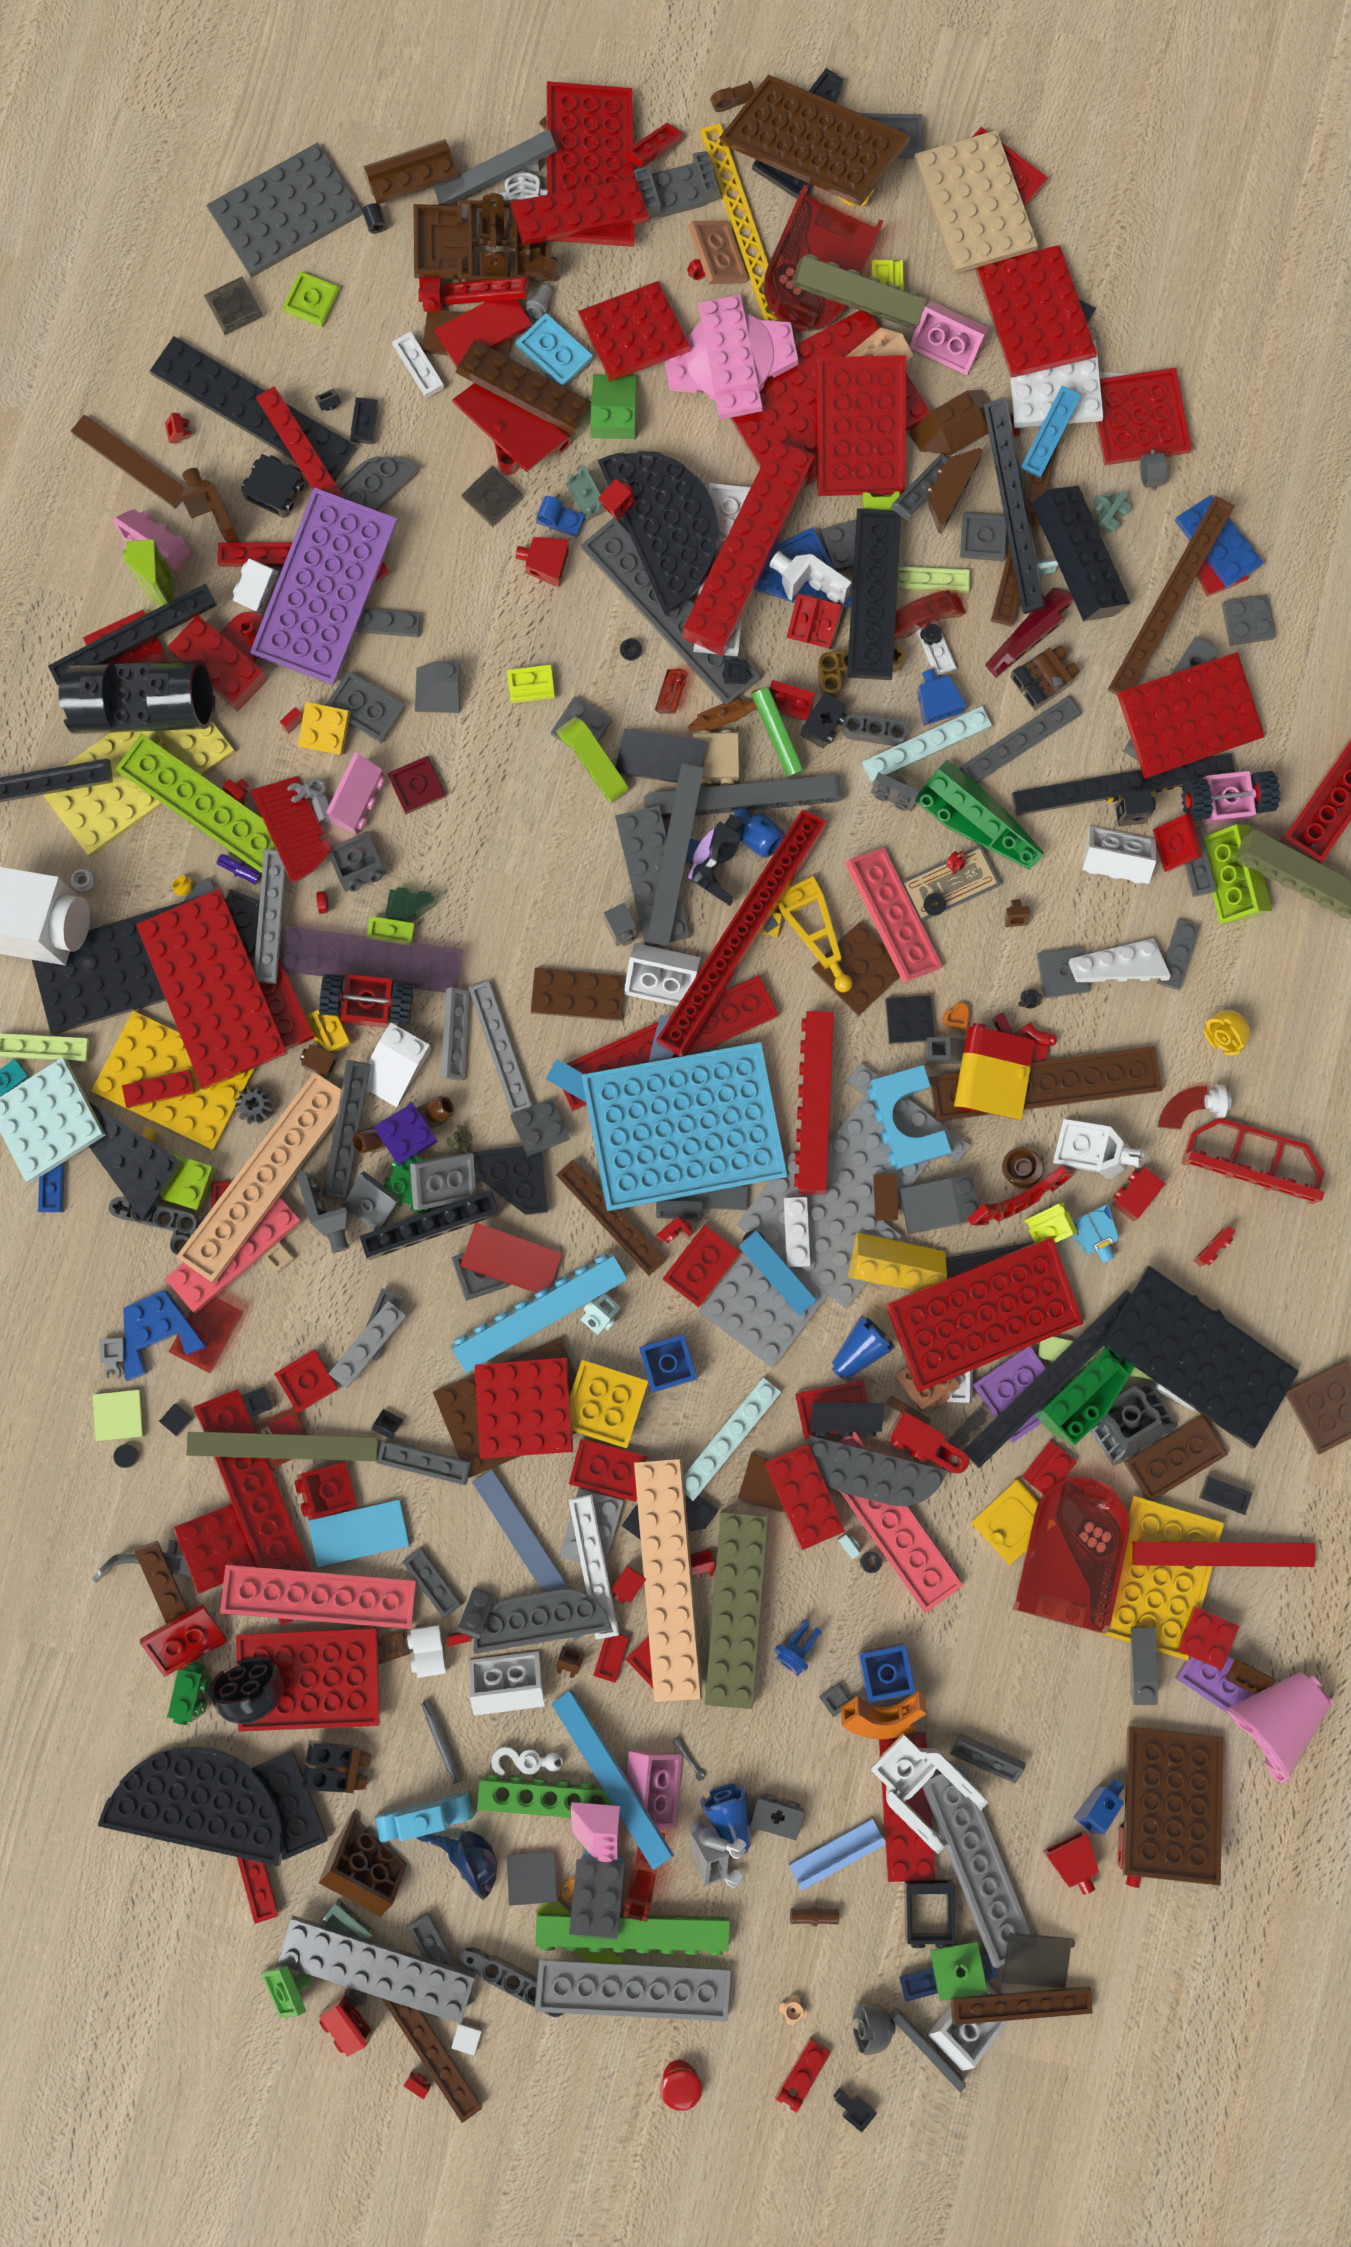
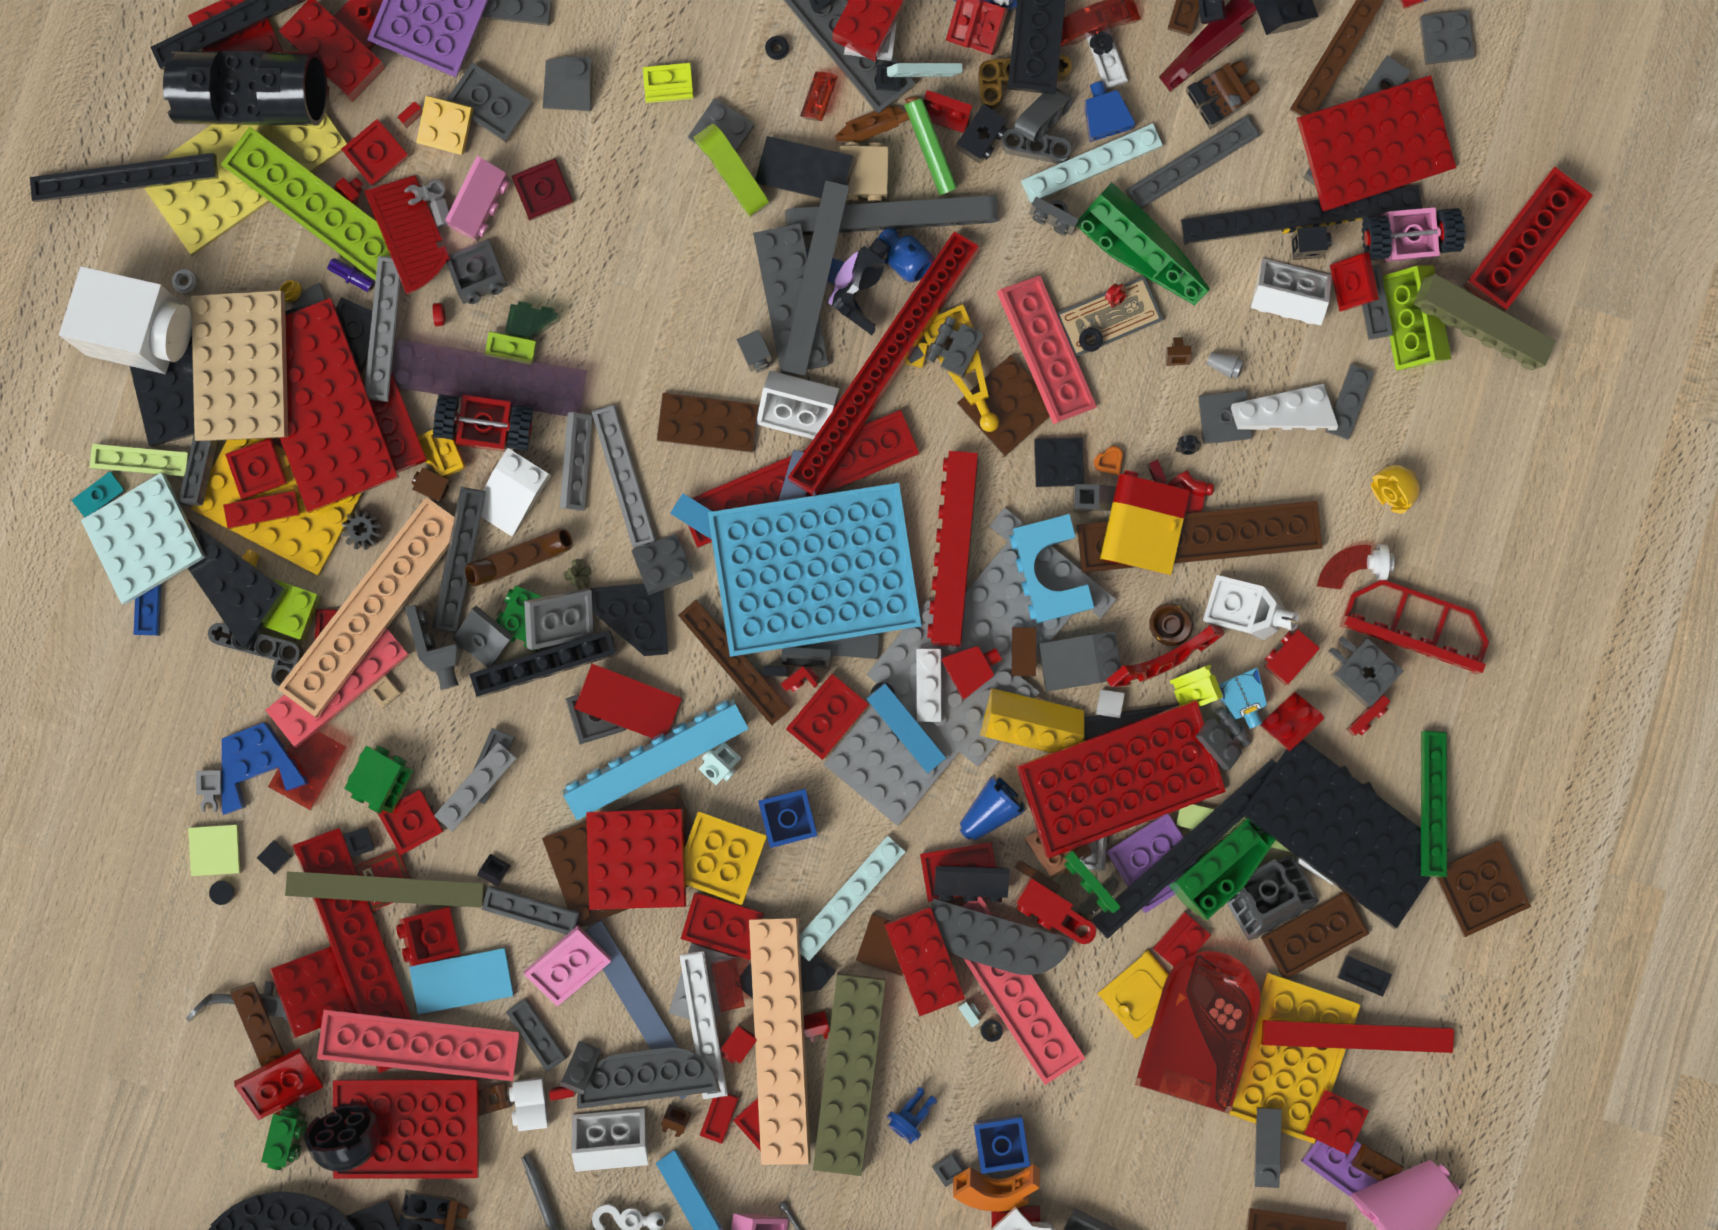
camera: 10 degrees right, 5 degrees up
(97, 1053) = (197, 472): none -> dark grey plate
(135, 954) = (239, 366): none -> tan plate
(152, 1051) = (256, 469): none -> red tile
(259, 756) = (374, 152): none -> red plate
(274, 1340) = (378, 779): none -> green brick
(405, 1134) = (520, 567): dark purple plate -> none
(460, 1514) = (567, 965): none -> bright pink plate
(615, 1526) = (727, 984): none -> clear red plate
(650, 1224) = (775, 671): none -> black tile
(768, 662) = (924, 69): none -> light aqua tile
(814, 918) = (960, 352): none -> dark grey plate
(836, 1214) = (970, 669): none -> red torso
(880, 699) = (1043, 115): none -> dark grey beam
(961, 1414) = (1090, 883): none -> green plate
(969, 1244) = (1110, 703): none -> white tile
(1061, 923) = (1226, 364): none -> light grey cone
(1077, 1279) = (1219, 743): none -> dark grey plate
(1143, 1253) = (1292, 721): none -> red plate
(1196, 1205) = (1365, 656): none -> dark grey hinge
(1282, 1328) = (1433, 804): none -> green tile

